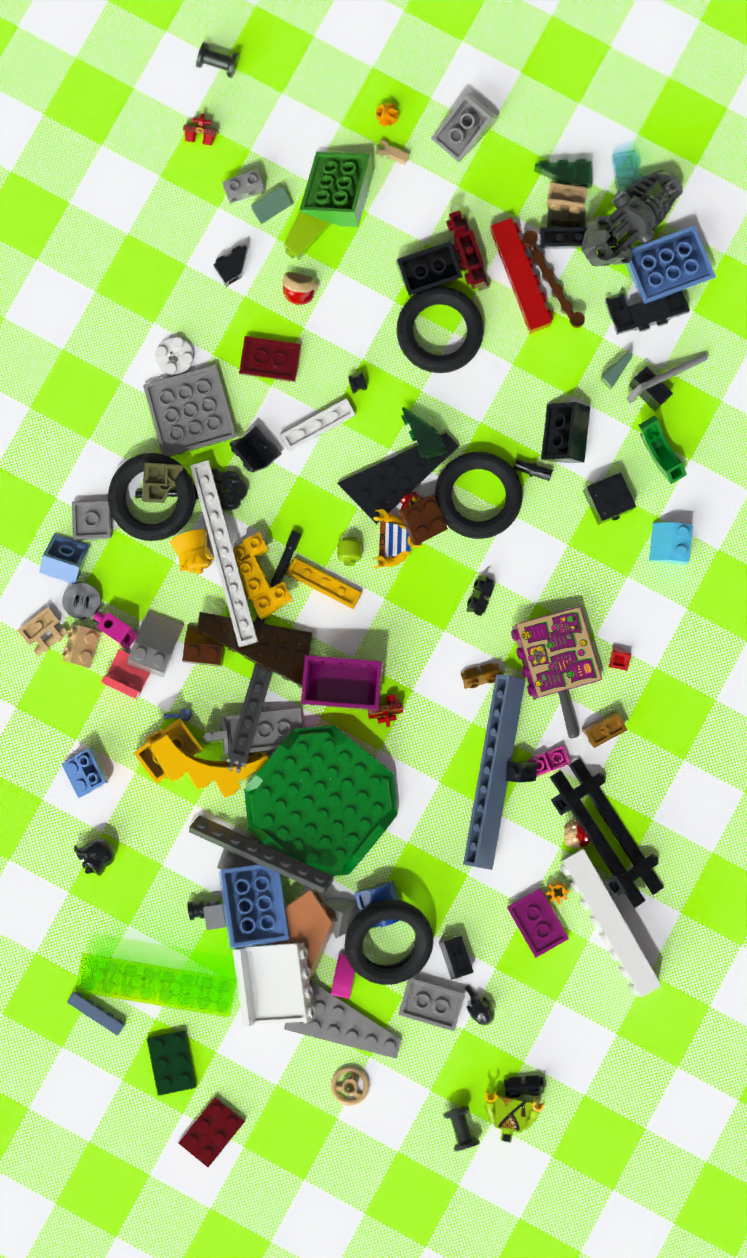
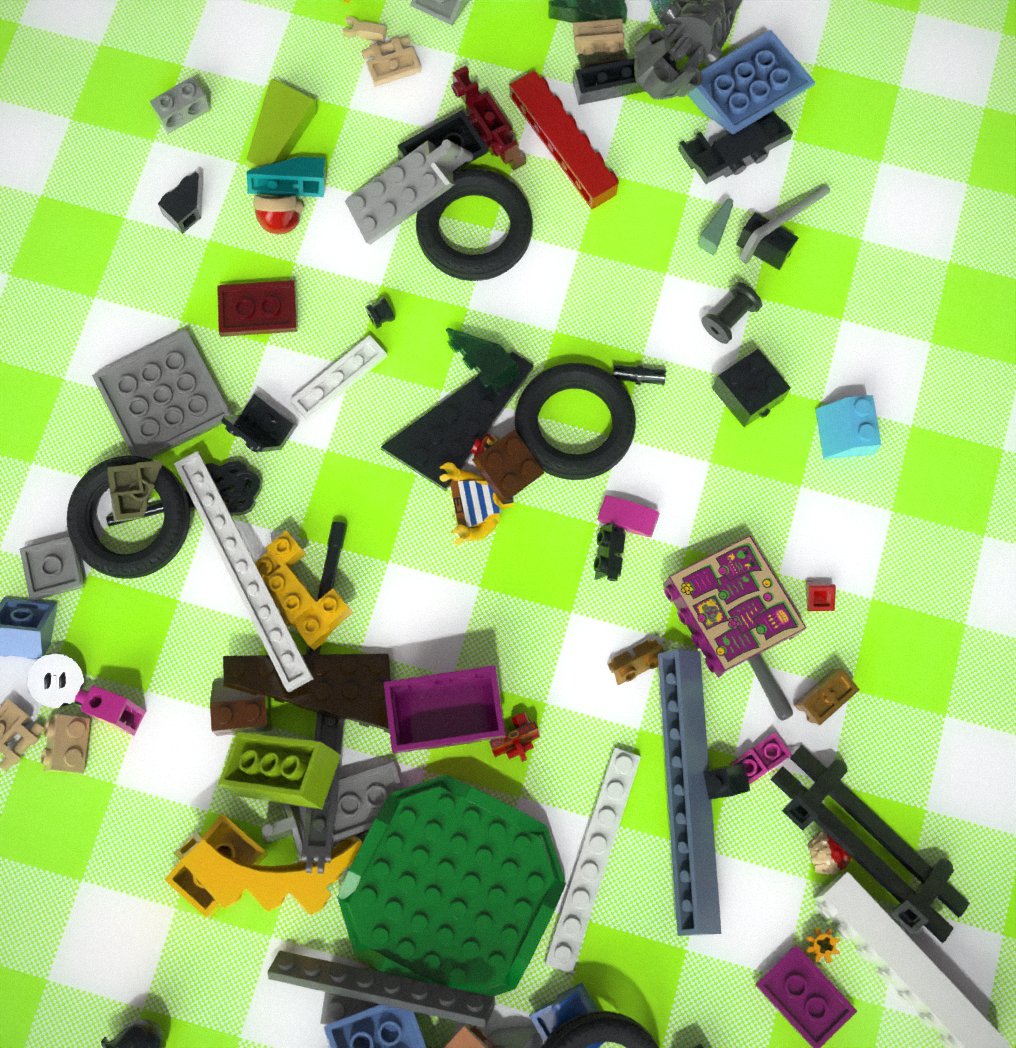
camera: 10 degrees left, 10 degrees down
(85, 772) = (101, 925): medium blue brick -> none
(125, 677) = (139, 770): coral bracket -> none
(155, 644) = (170, 719): light grey slope -> none
(164, 352) = (126, 318): white plate -> none
(184, 715) = (232, 809): medium blue hand -> none
(192, 130) = (101, 53): red hips -> none
(192, 551) = (198, 576): yellow hat -> none
(223, 697) = (280, 769): none -> lime brick
(271, 205) = (221, 121): sand green slope -> none
(314, 264) = (289, 178): none -> teal slope
(324, 583) = (391, 583): yellow tile -> none
(338, 187) = (303, 77): bright green slope -> none
(349, 551) = (416, 531): lime head -> none
(394, 294) = (405, 188): none -> light grey hinge
(407, 187) = (393, 65): none -> tan plate
(419, 802) = (592, 861): none -> white plate
(499, 572) = (628, 515): none -> dark pink slope
(565, 432) = (670, 318): black slope -> none
(575, 319) = (648, 173): reddish brown bar -> none
(610, 439) = (743, 300): none -> pearl dark grey piece
(660, 450) = (804, 318): green arch -> none

